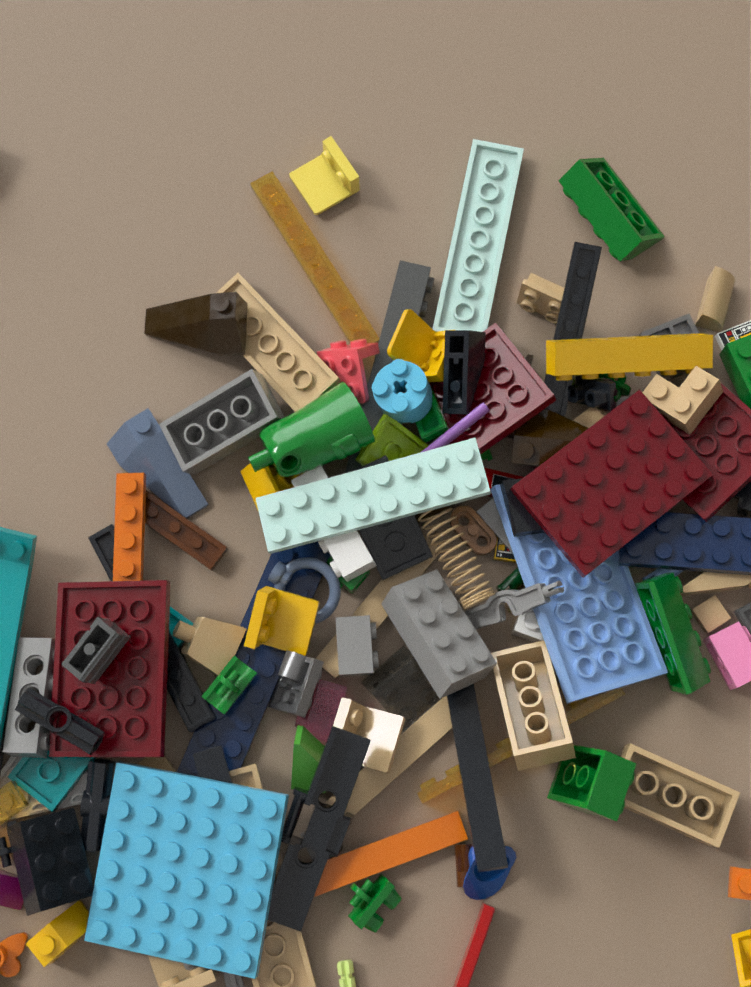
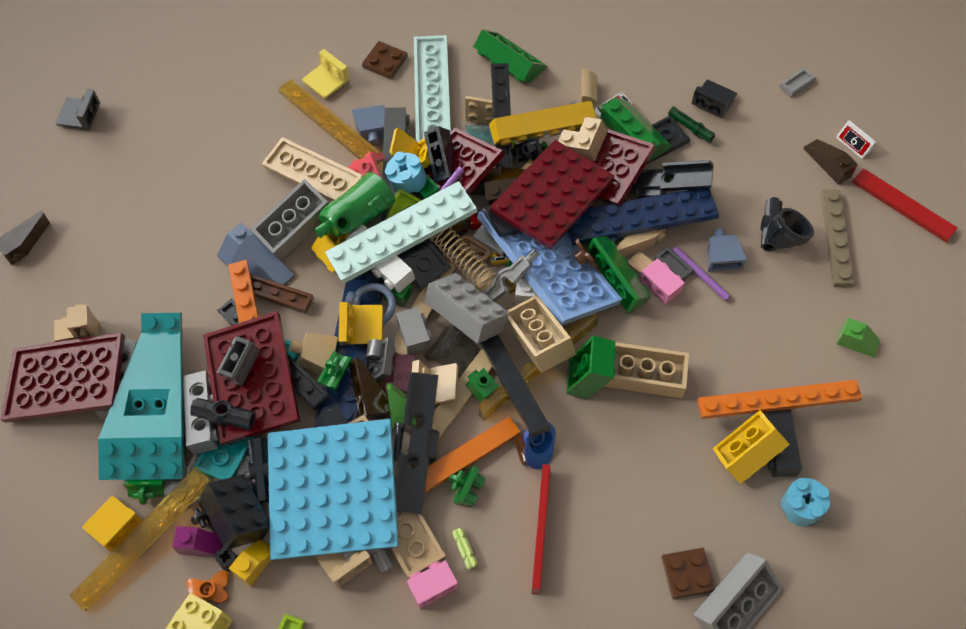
camera: 15 degrees left, 15 degrees down
(20, 926) = (224, 554): none -> black bush
(203, 322) = (268, 167): dark brown wedge -> none
(269, 733) = (368, 394): none -> dark brown slope
(373, 279) = (370, 123): none -> sand blue torso
(420, 167) = (384, 60): none -> reddish brown plate
(430, 757) = (481, 384): none -> green brick
(530, 334) = (480, 132): none -> clear light blue slope
(628, 595) = (583, 257): none -> reddish brown animal

